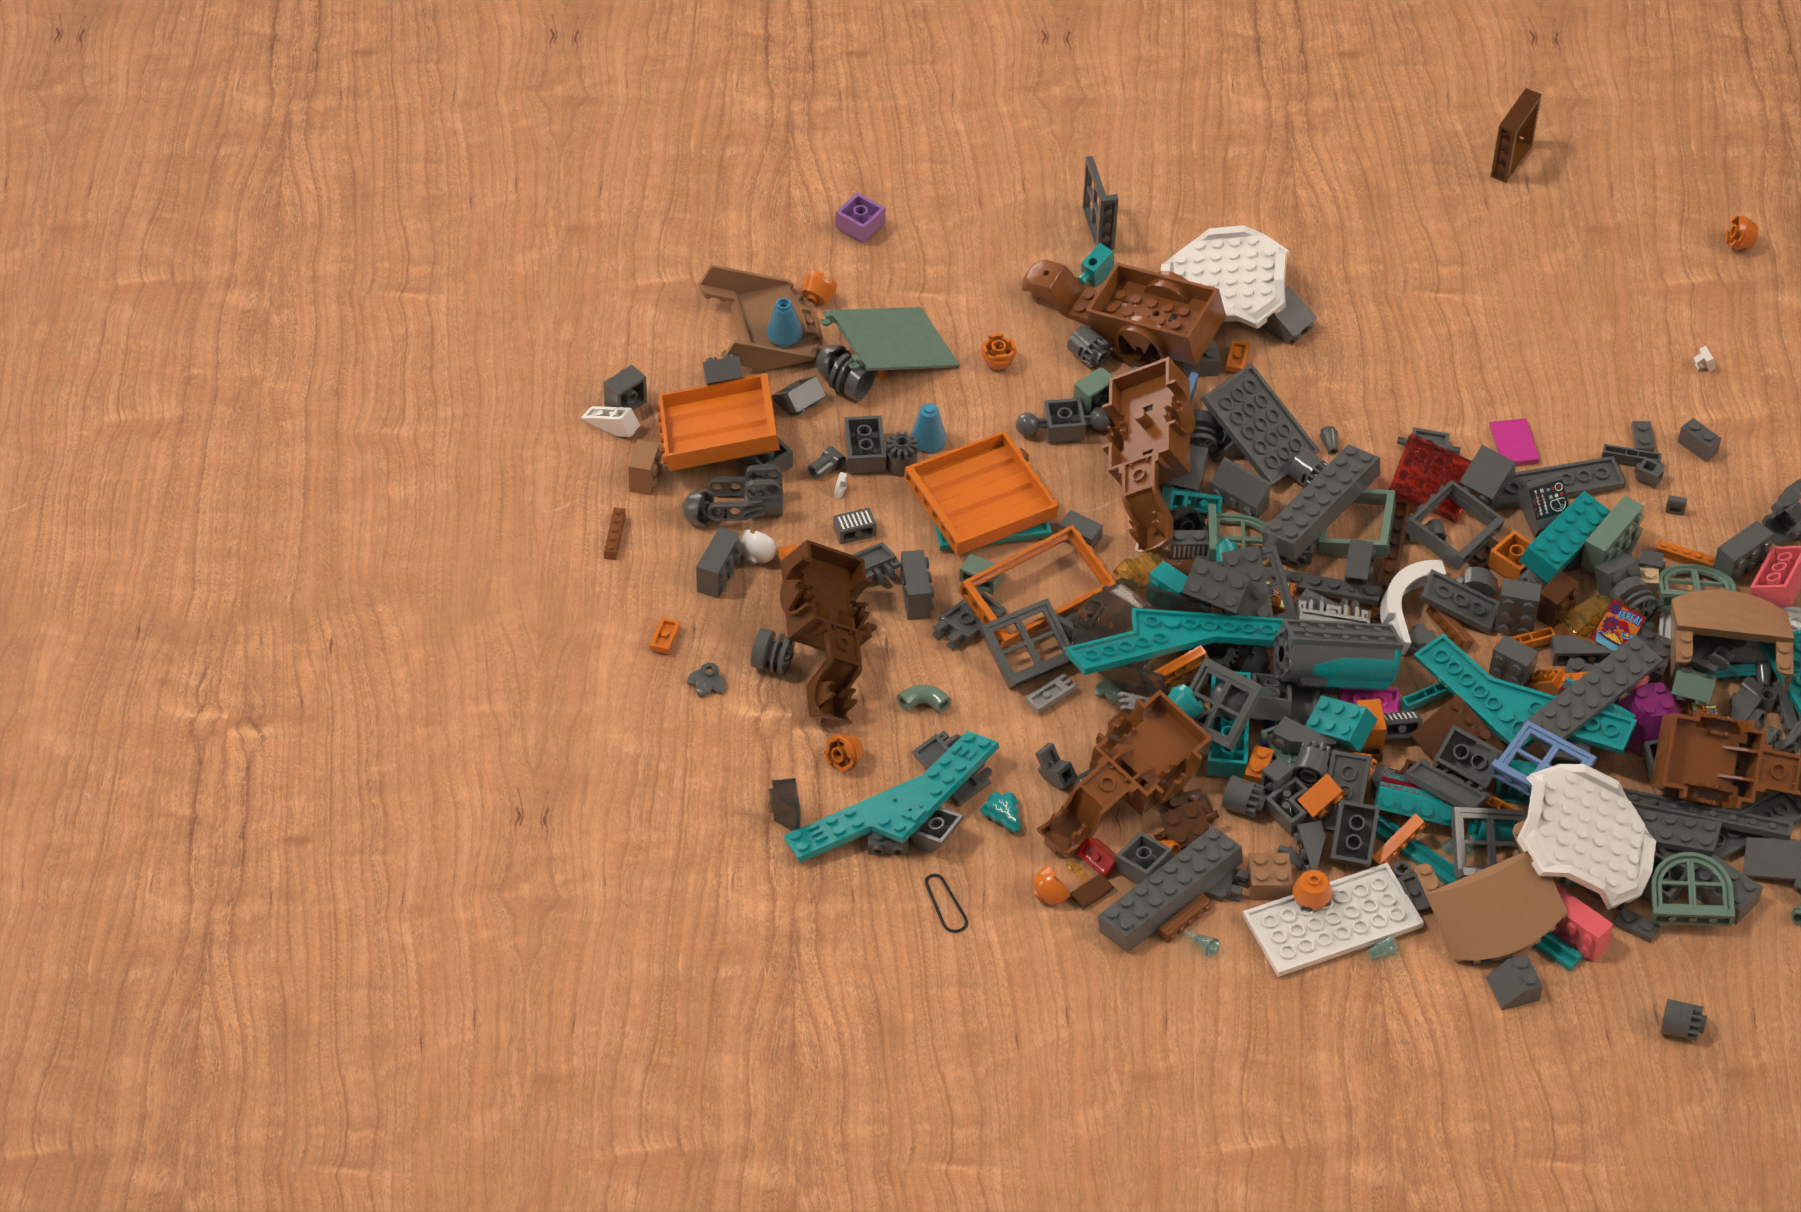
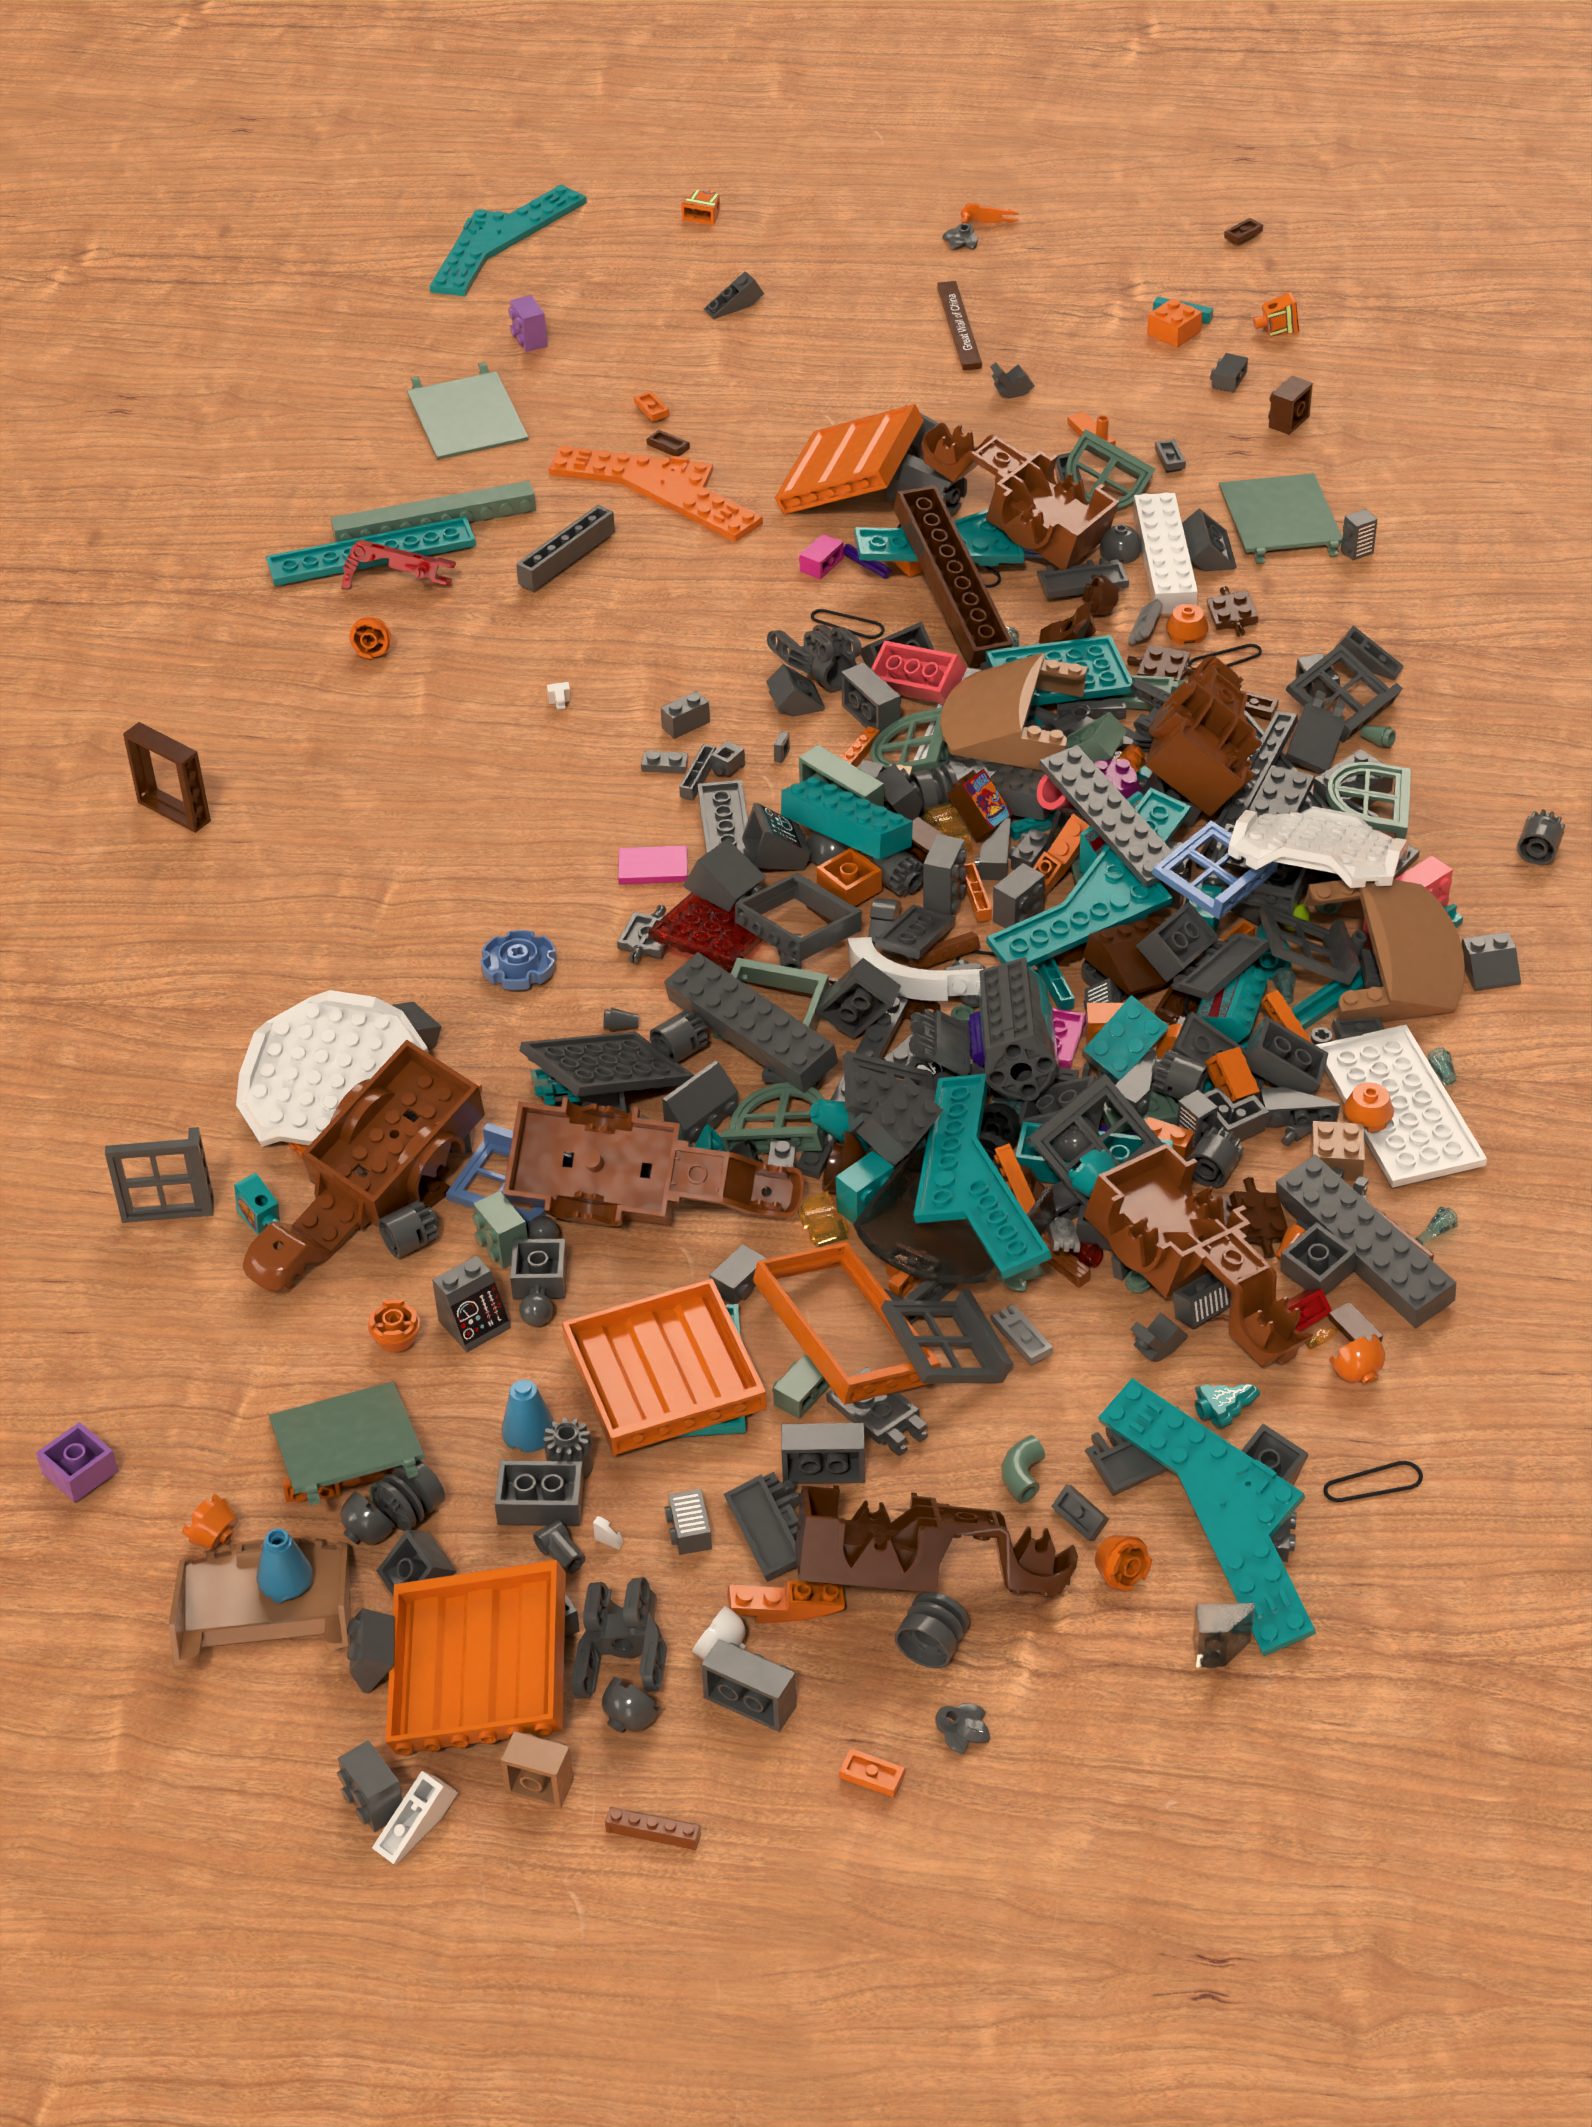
camera: 80 degrees left, 5 degrees down
(893, 729) = (1080, 1512): none -> dark grey plate
(1021, 385) = (470, 1304): none -> slope
(1382, 374) = (518, 960): none -> medium blue piece
(1748, 506) = (794, 692): none -> dark grey slope

